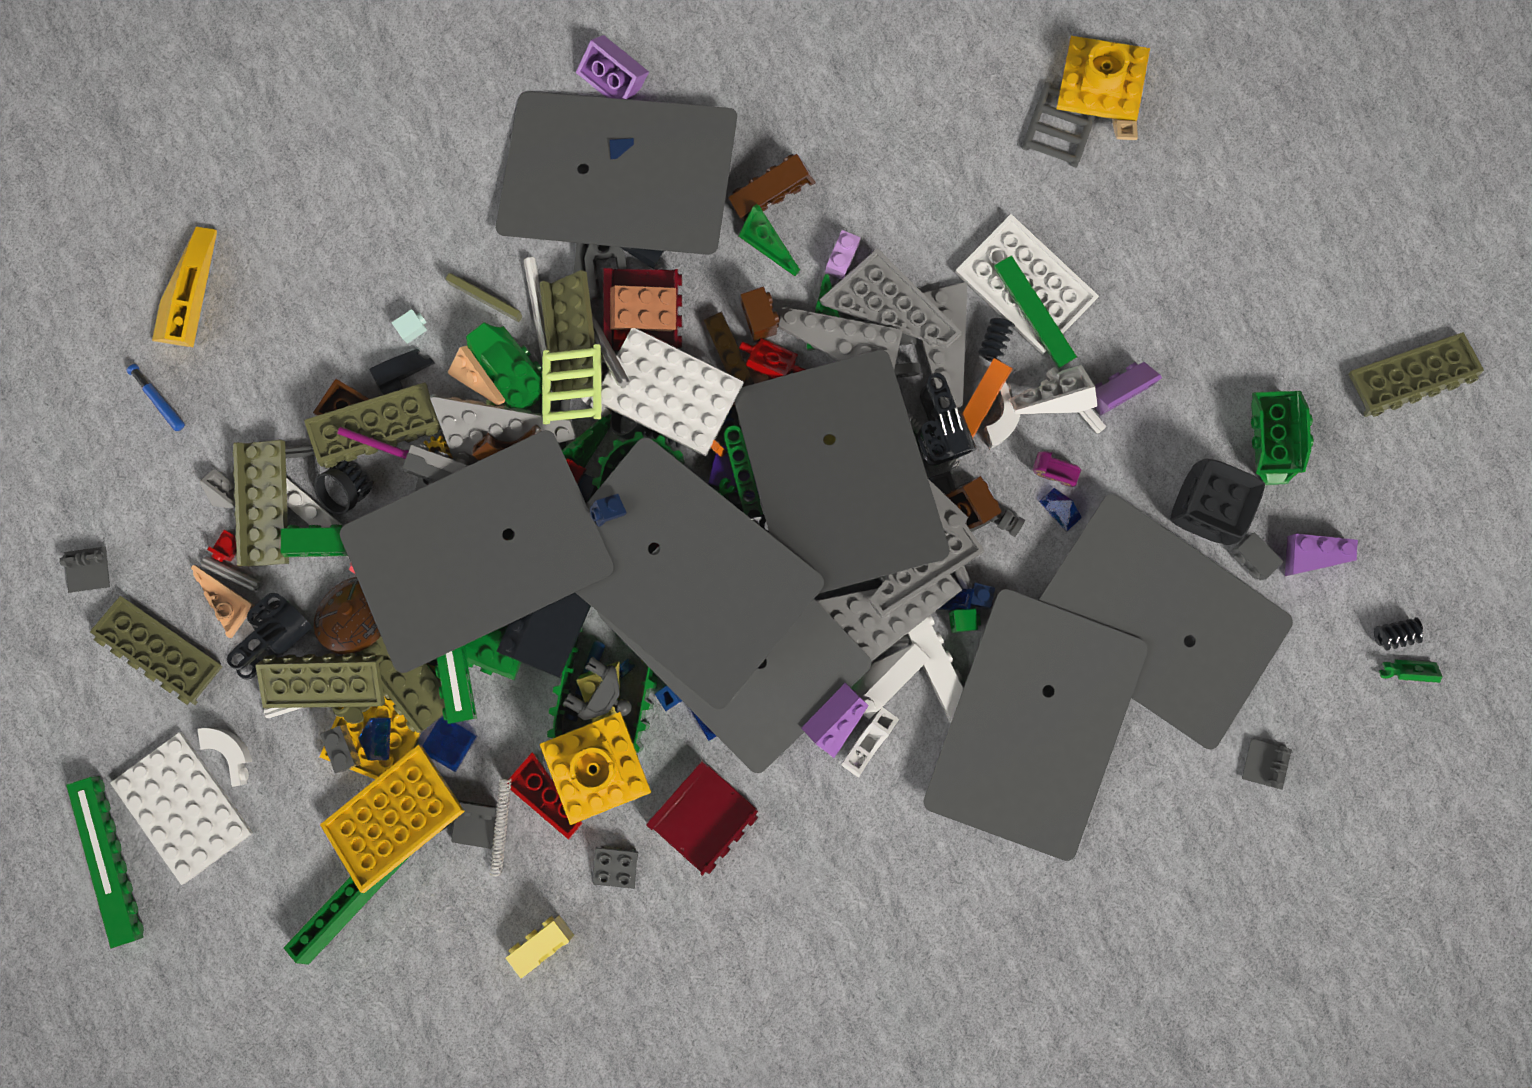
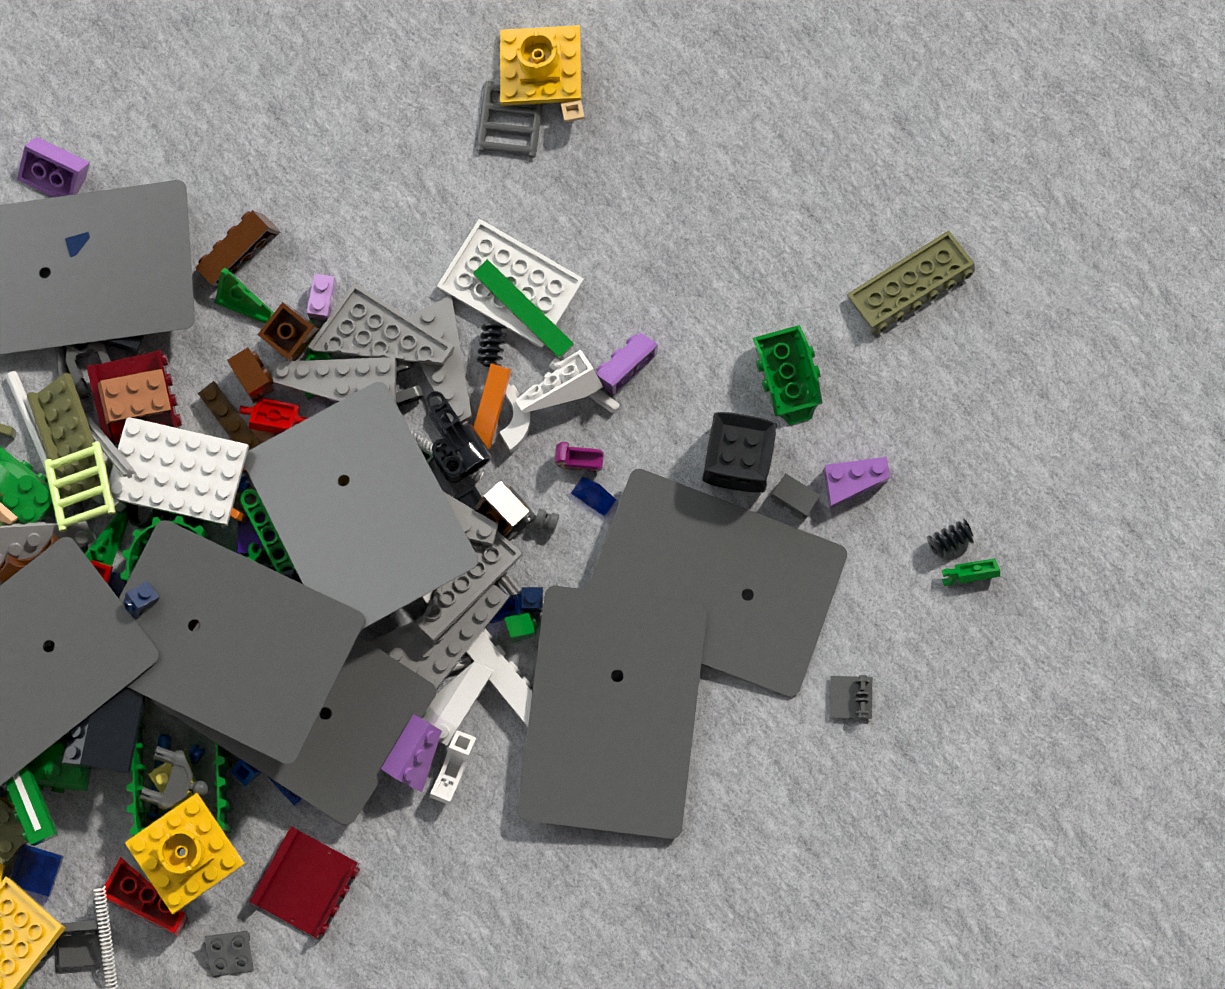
camera: 10 degrees left, 5 degrees down
(804, 280) = (288, 332): none -> reddish brown brick

